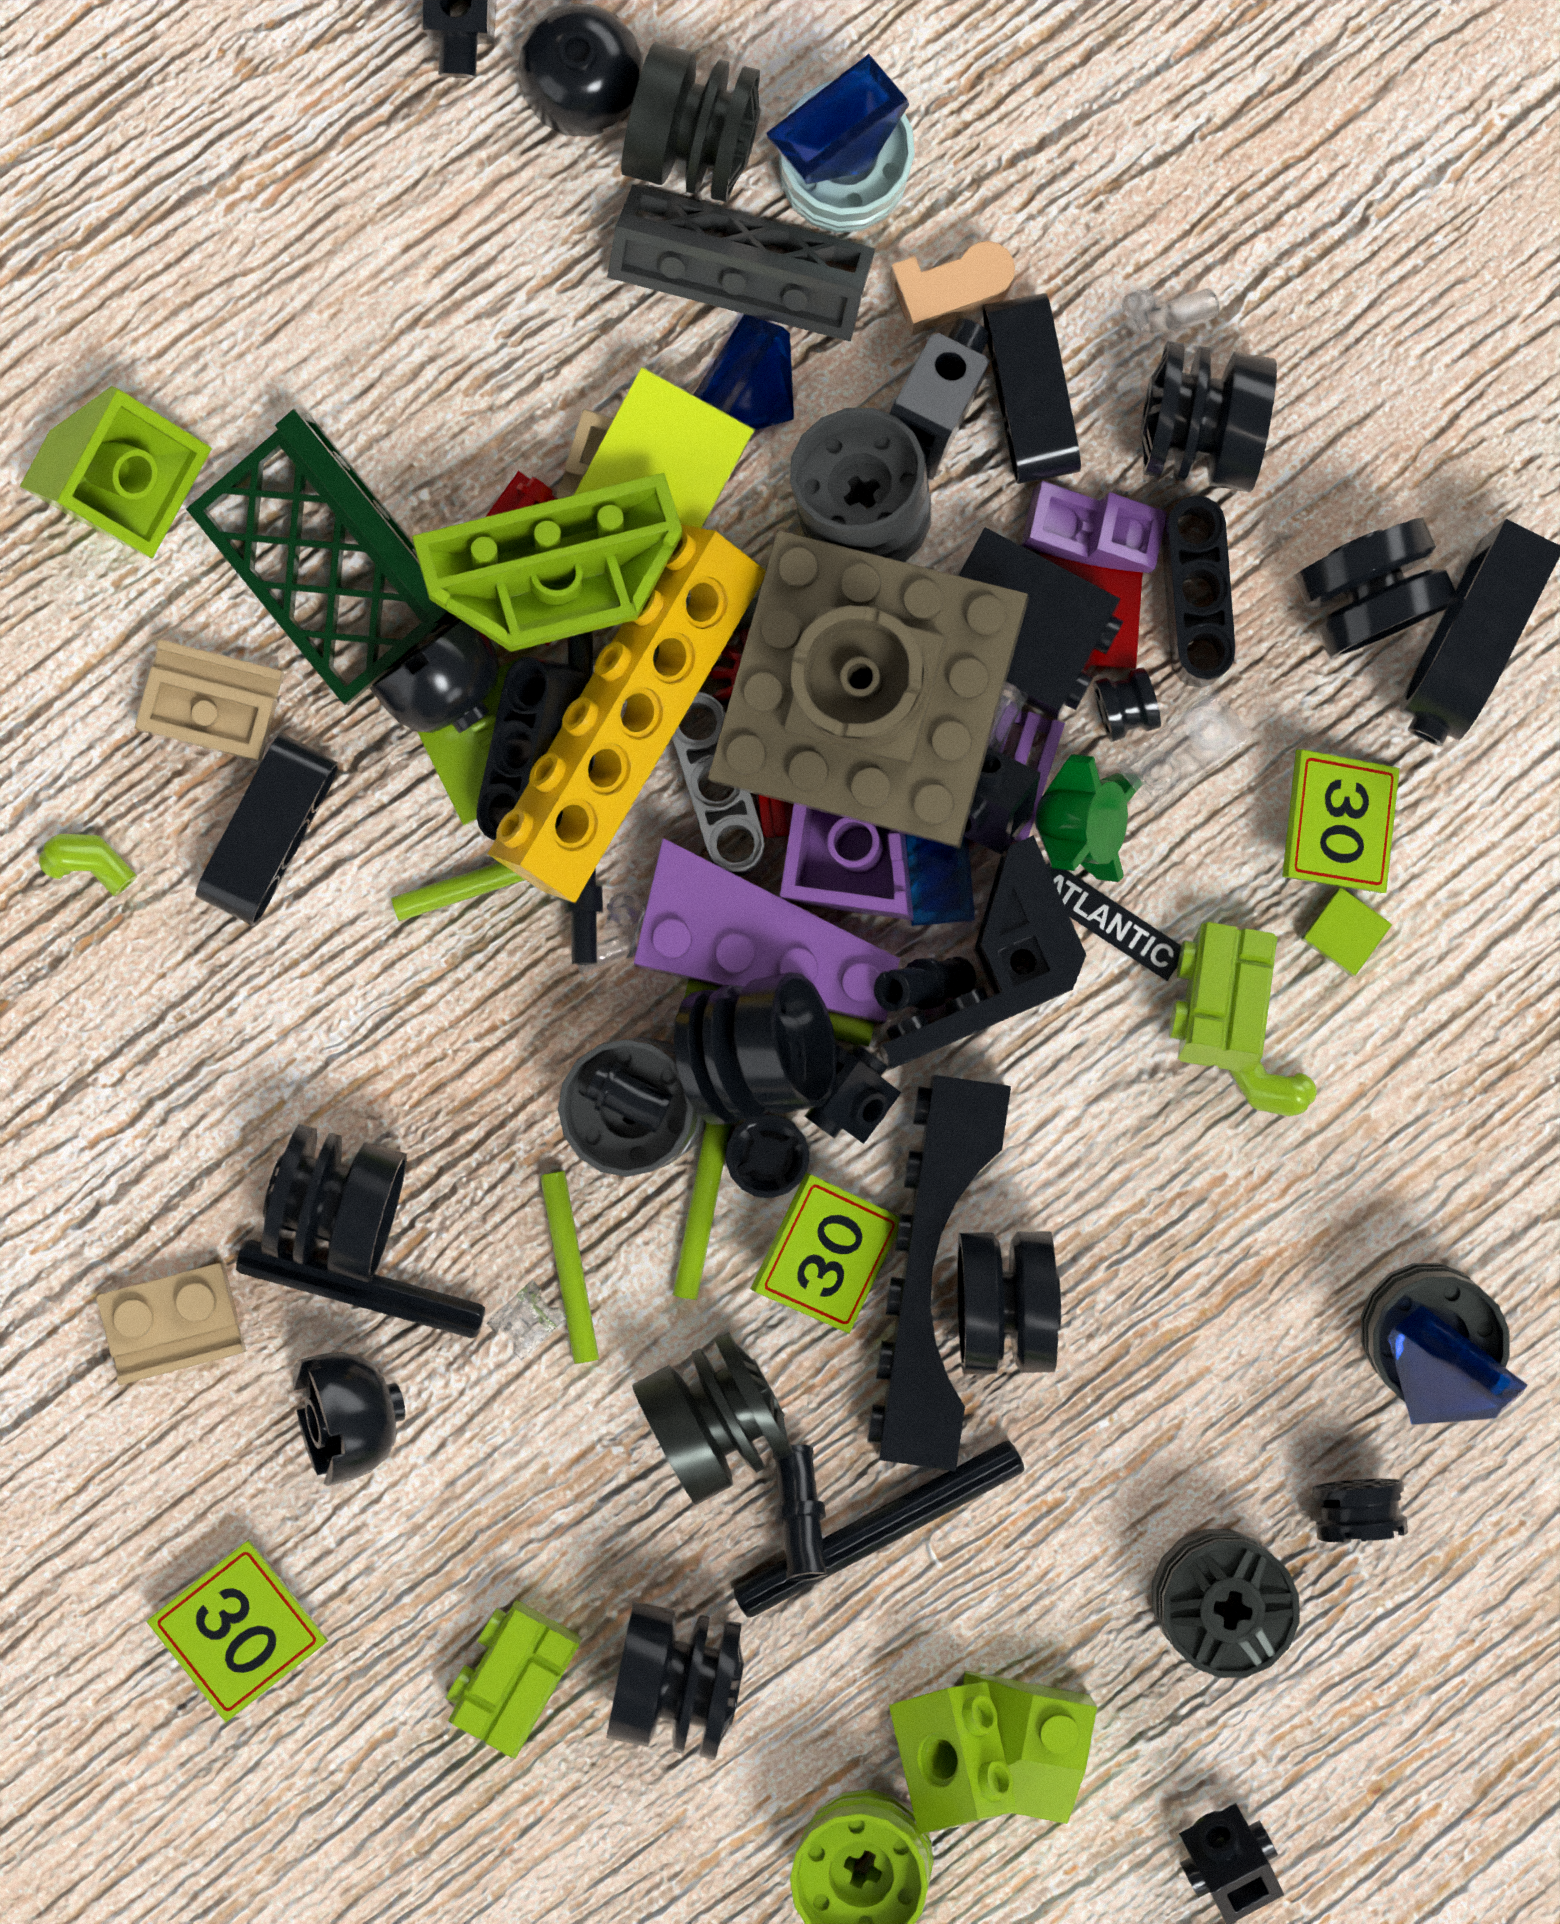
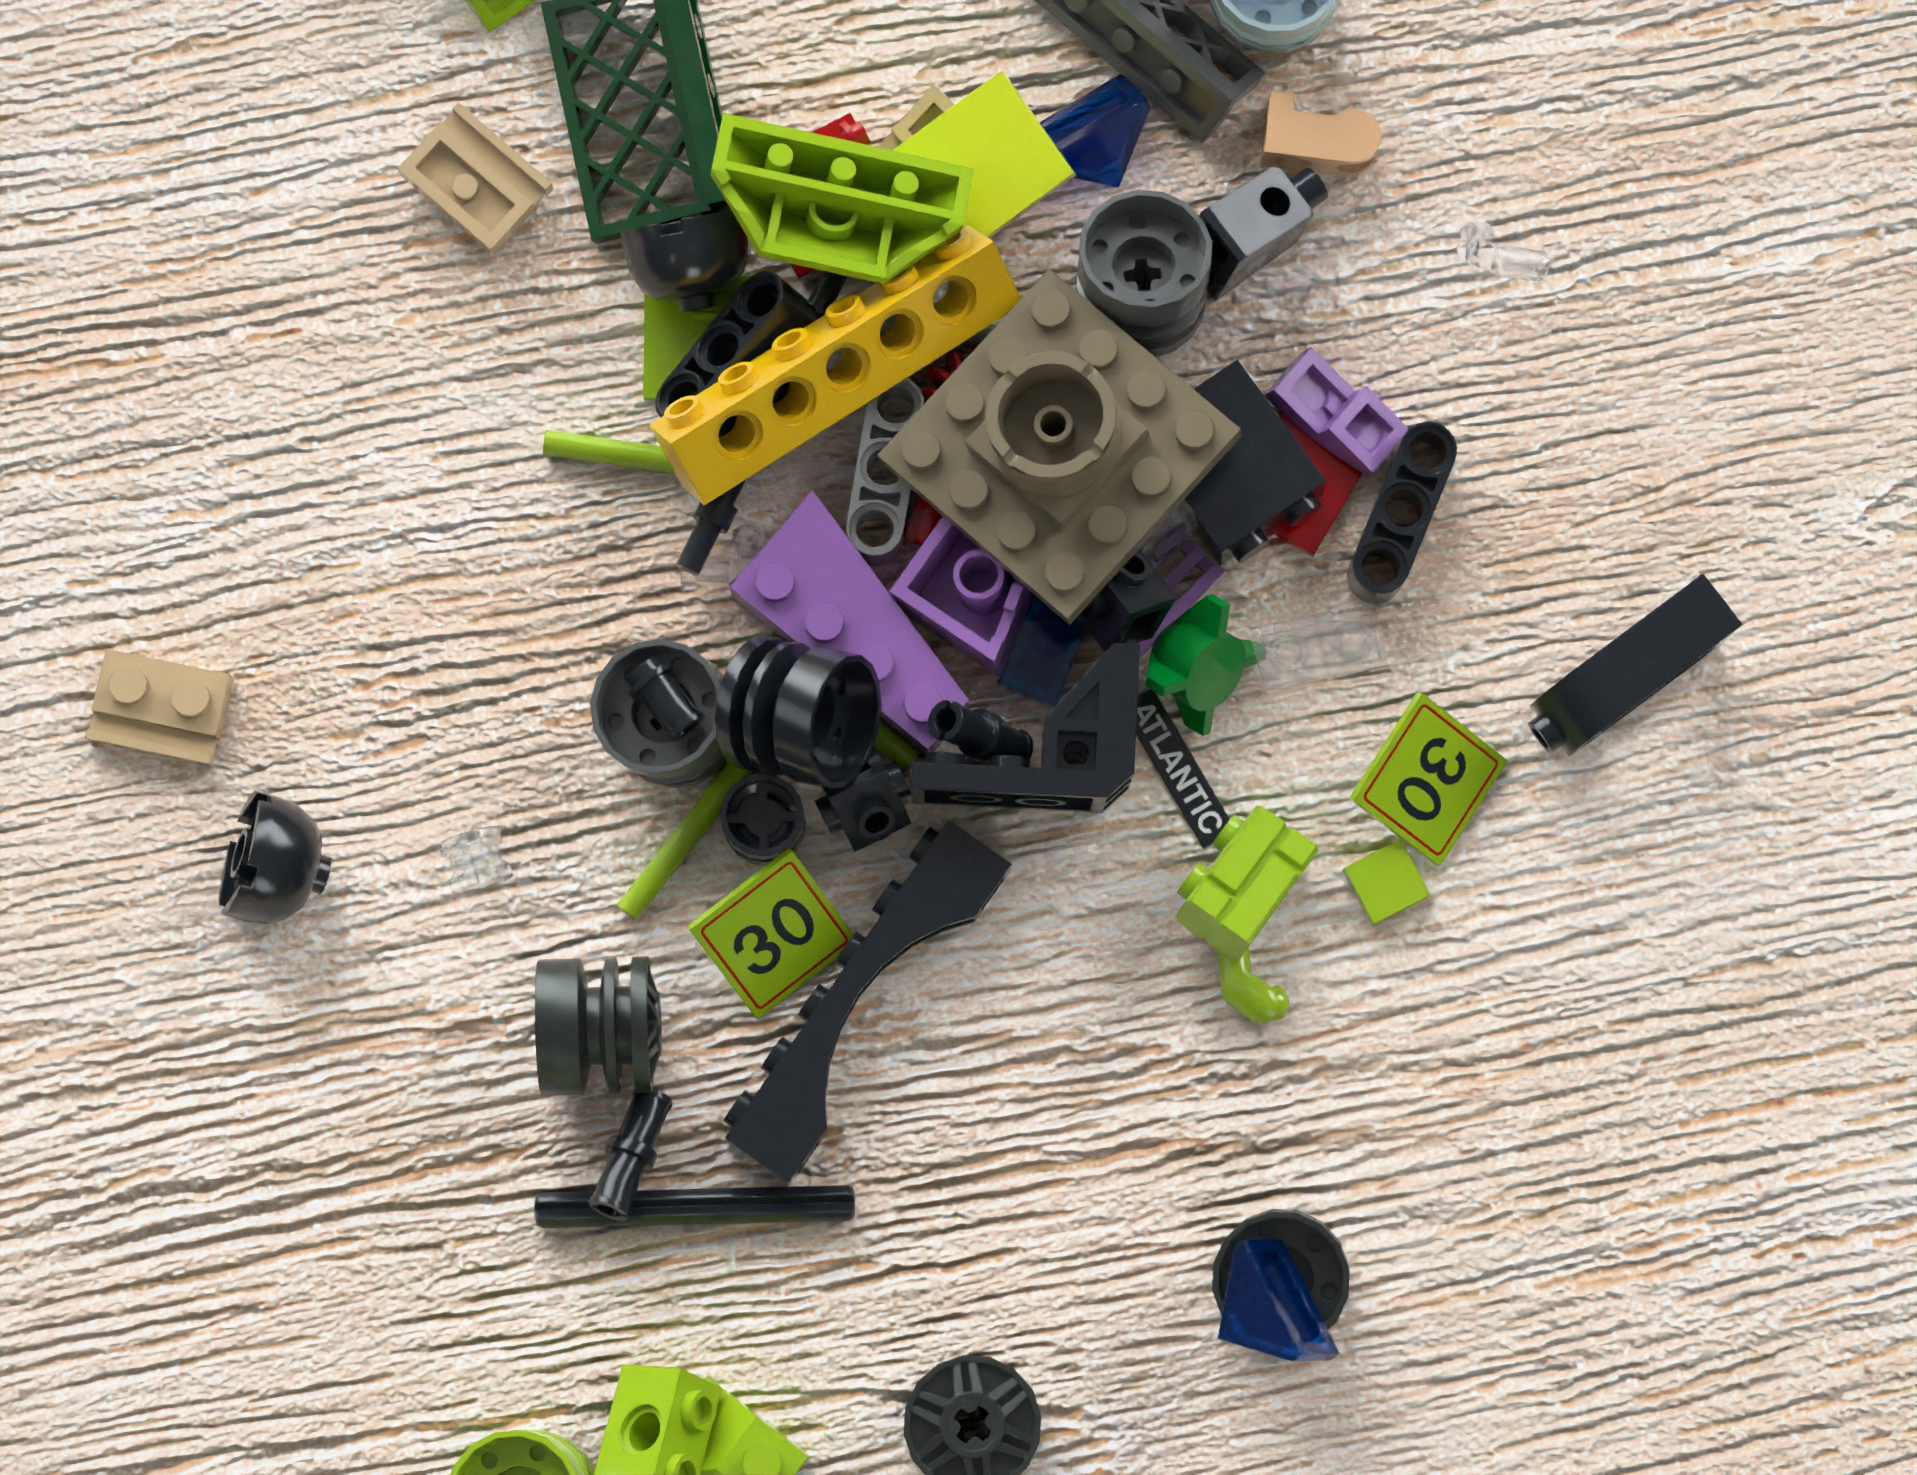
camera: 30 degrees right, 5 degrees down
(86, 853) = (292, 254): lime arm -> none
(237, 1630) = (76, 1006): lime piece -> none
(267, 829) = (467, 315): black beam -> none
(333, 1203) = (345, 656): black wheel -> none
(380, 1295) = (342, 760): black axle -> none
(514, 1677) = (299, 1172): lime brick -> none
(569, 1267) = (537, 834): lime bar -> none
(675, 1681) = (441, 1242): black wheel -> none
(1012, 1302) = (910, 1053): black wheel -> none
(1031, 388) = (1342, 261): black beam -> none
(1127, 704) = (1288, 581): black wheel -> none
(1209, 416) = (1485, 359): black wheel -> none
(1360, 1510) = (1137, 1404): black wheel -> none
(1373, 582) = (1560, 583): black wheel -> none

